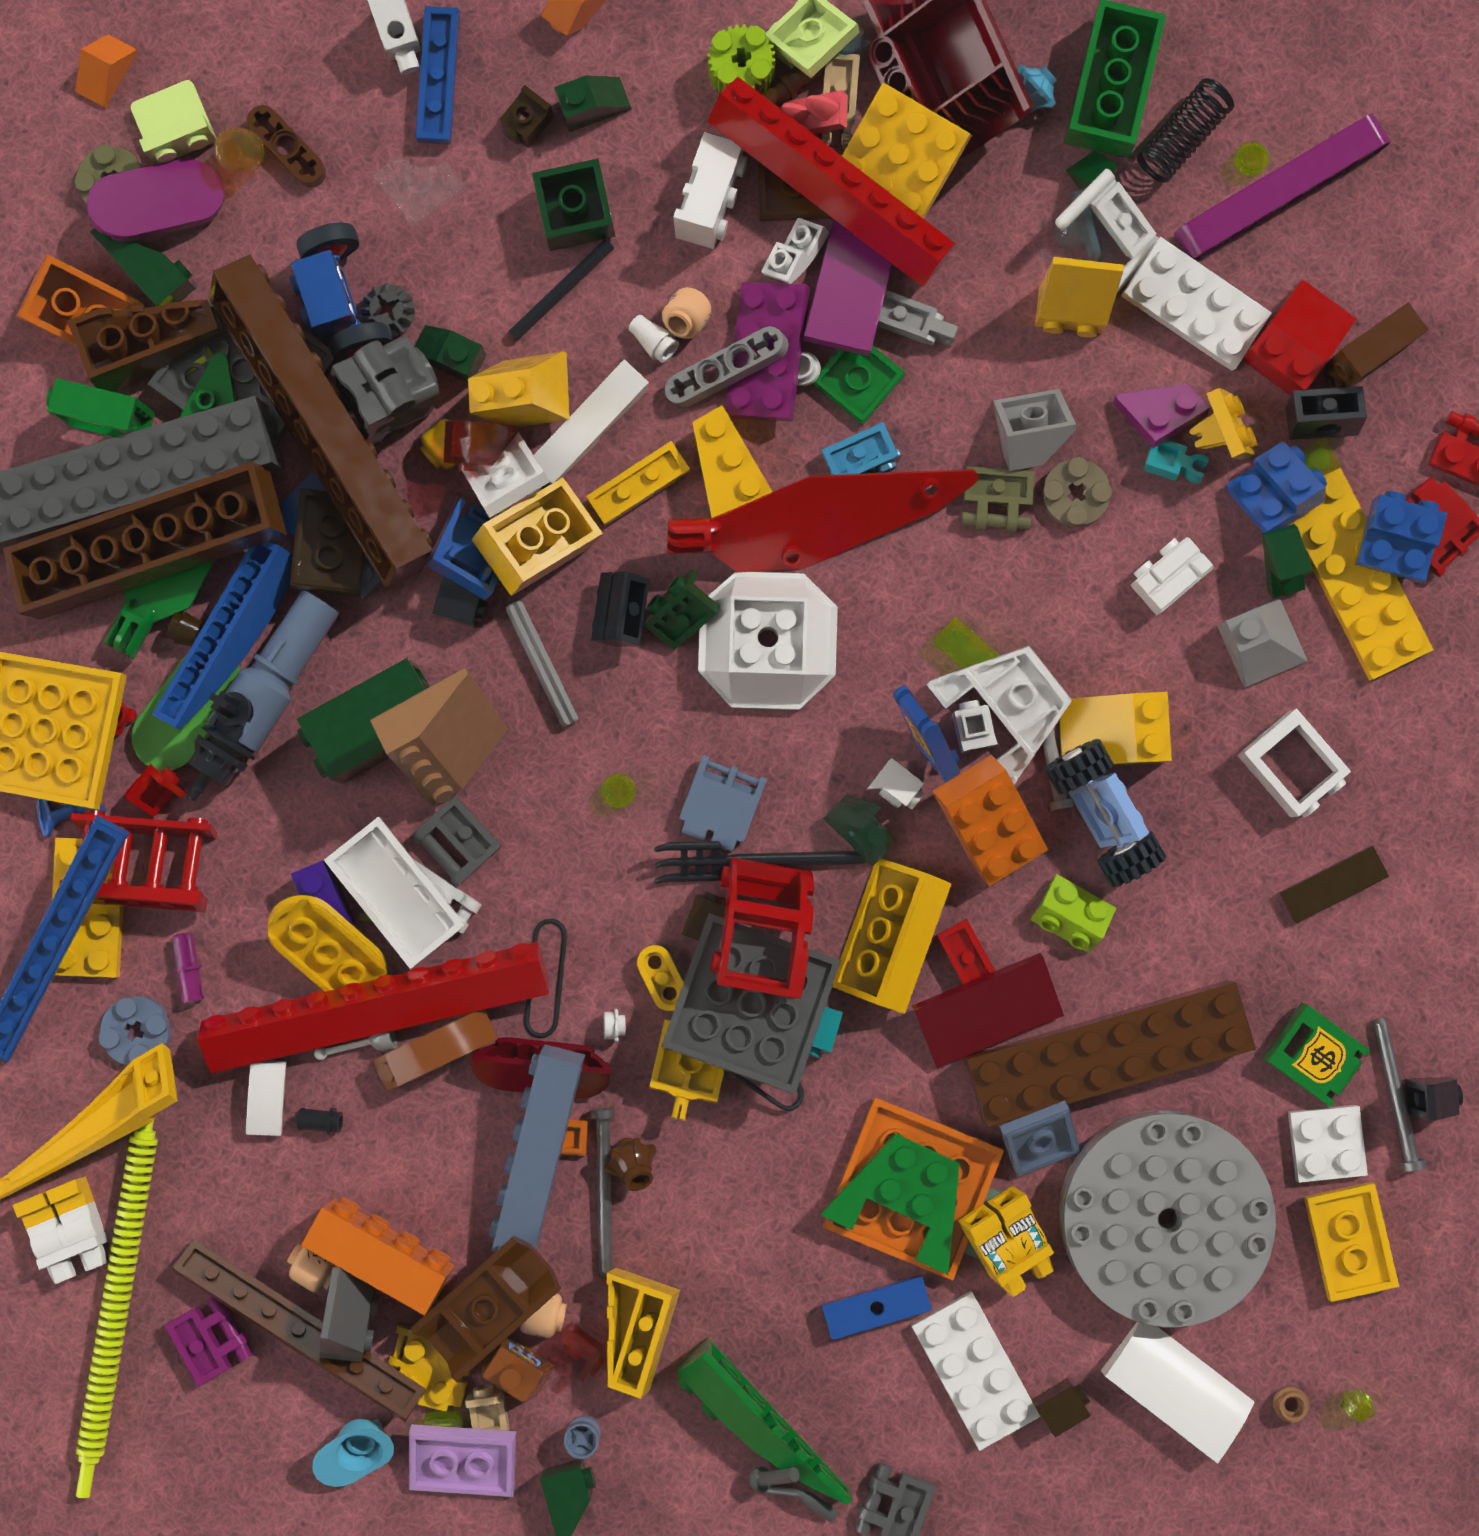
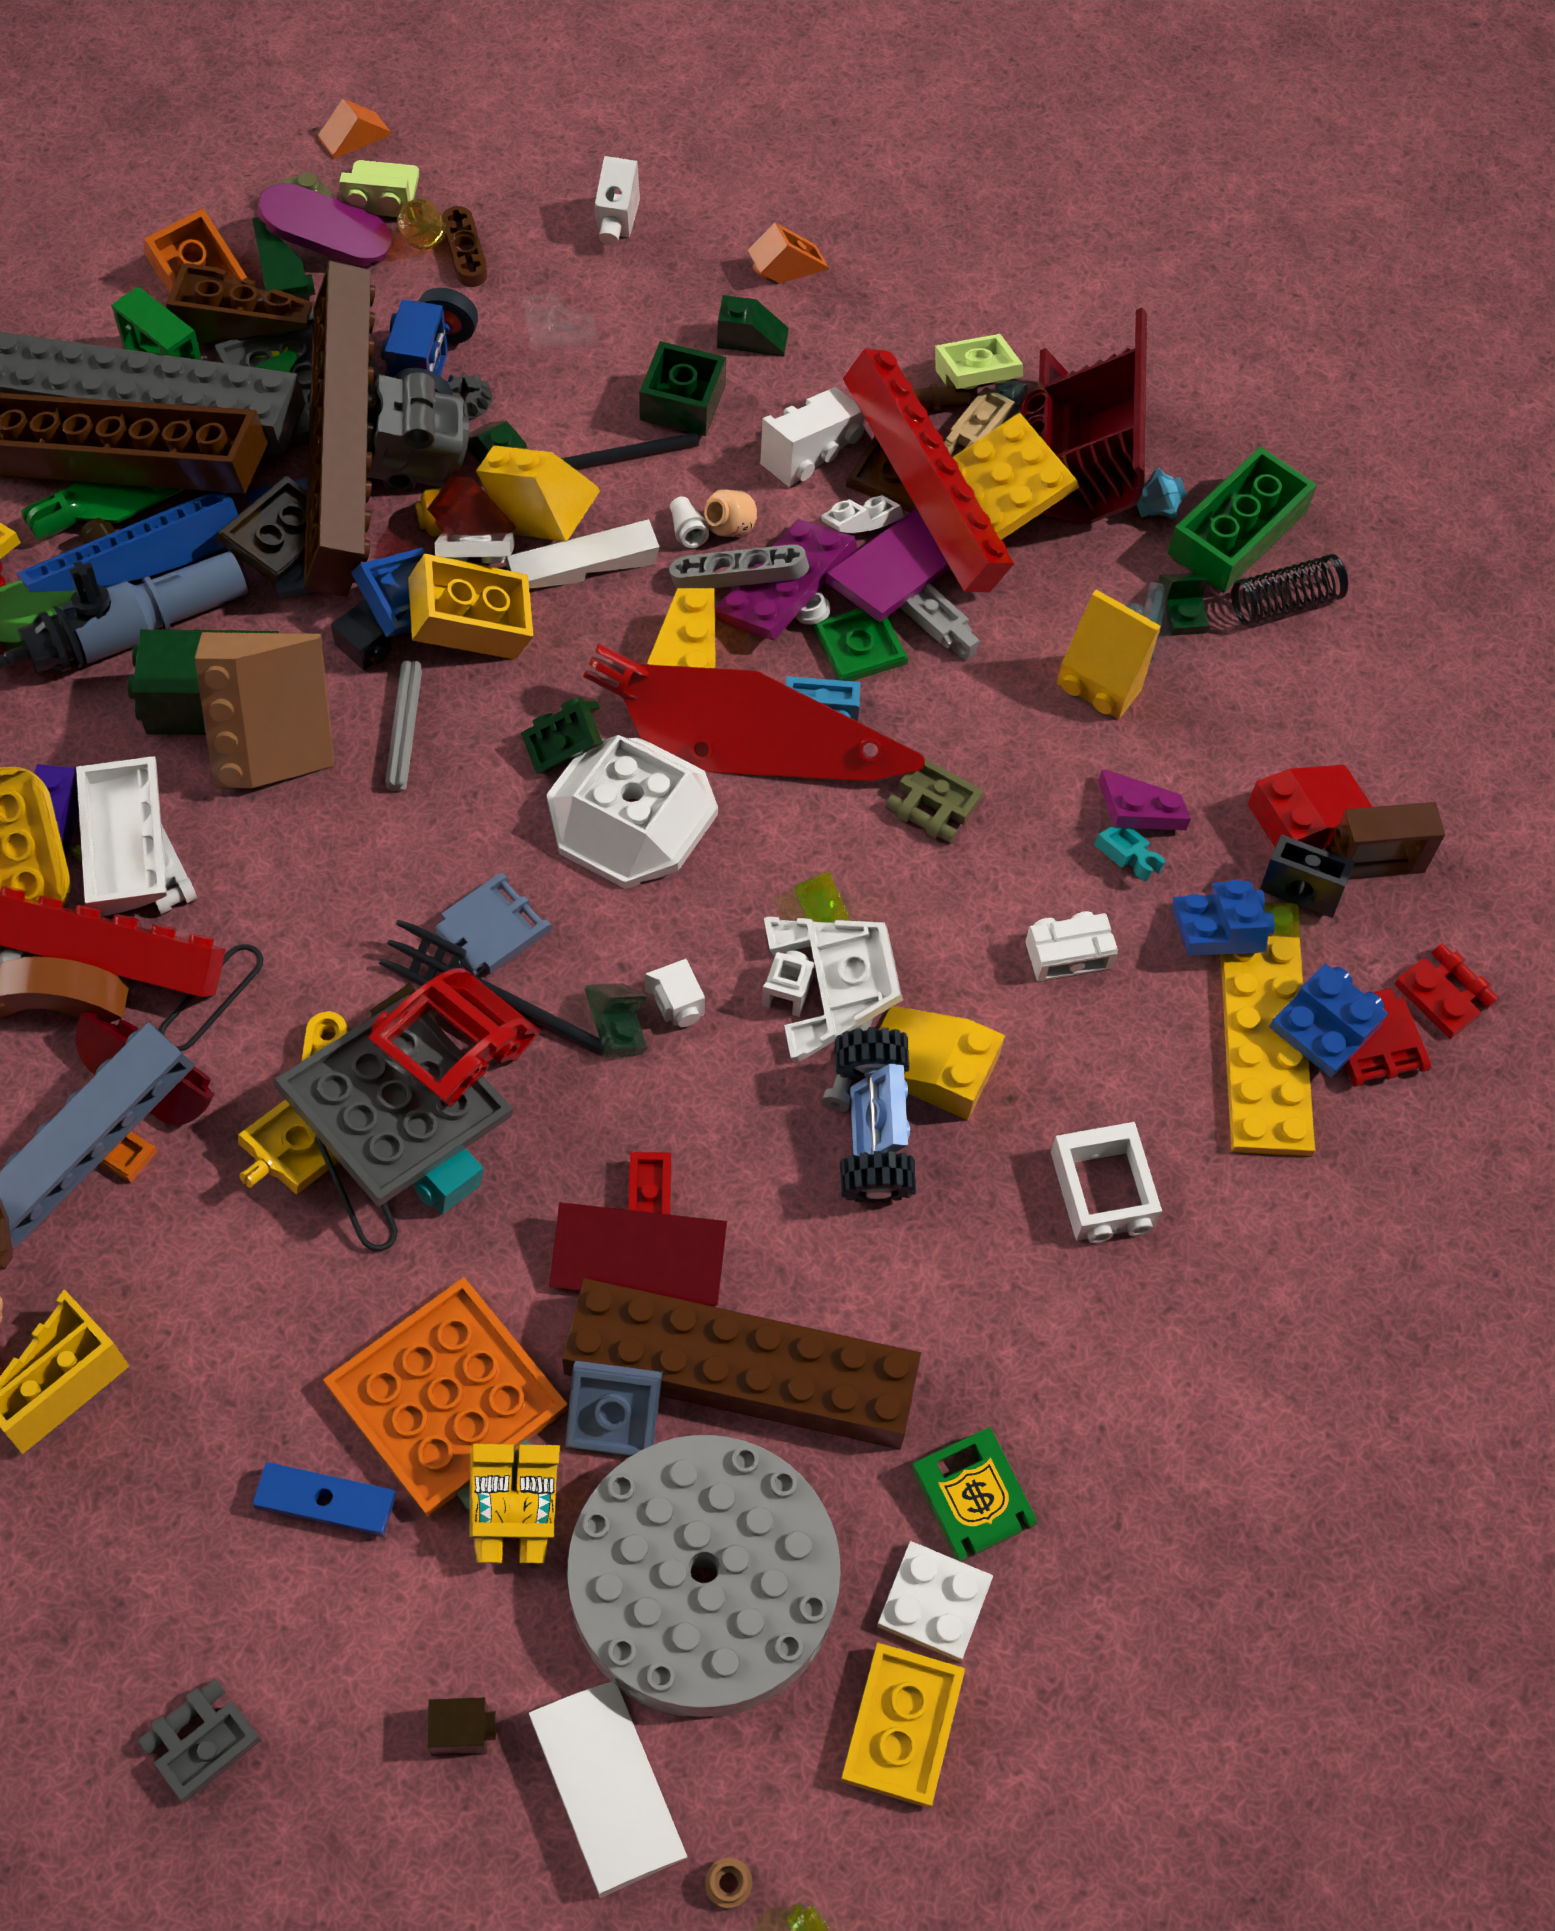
camera: 20 degrees right, 25 degrees down
(438, 75) = (629, 255): blue plate -> none
(464, 833) = (226, 825): dark grey plate -> none
(526, 130) = (686, 315): dark brown brick -> none
(603, 1118) = (172, 1151): flat silver bar -> none
(614, 1025) = (245, 1070): white plate -> none
(618, 790) = (400, 865): clear neon green plate -> none
(620, 609) = (507, 709): black brick -> none
(632, 1163) = (170, 1203): reddish brown rock -> none
(638, 483) = (596, 624): yellow plate -> none
(741, 46) = (913, 348): lime brick -> none
(753, 1419) = (109, 1538): green wedge -> none
(762, 1479) = (72, 1617): dark grey piece -> none
(819, 112) = (951, 417): coral tile -> none
(891, 935) = (584, 1131): yellow slope -> none
(911, 1183) = (444, 1378): green wing -> none
(927, 735) = (735, 969): blue container -> none
(975, 1370) = (388, 1636): white plate -> none
(990, 820) = (750, 1061): orange brick -> none
(1032, 427) = (999, 756): light grey slope -> none
(1073, 914) = (786, 1210): lime bracket -> none
(1095, 493) = (1026, 817): dark tan plate -> none
(1118, 216) = (1187, 629): white plate -> none
(1196, 304) = (1222, 729): white plate -> none
(1226, 426) = (1196, 837): yellow plate -> none
(1251, 159) = (1344, 644): clear neon green plate -> none
(1262, 643) = (1133, 1052): light grey slope -> none
(1282, 186) = (1362, 677): magenta beam -> none
(1285, 561) = (1194, 985): dark green slope -> none
(1334, 884) = (1087, 1328): dark brown tile -> none
(1412, 1160) = (1022, 1673): flat silver bar -> none
(1433, 1097) = (1085, 1604): black slope -> none

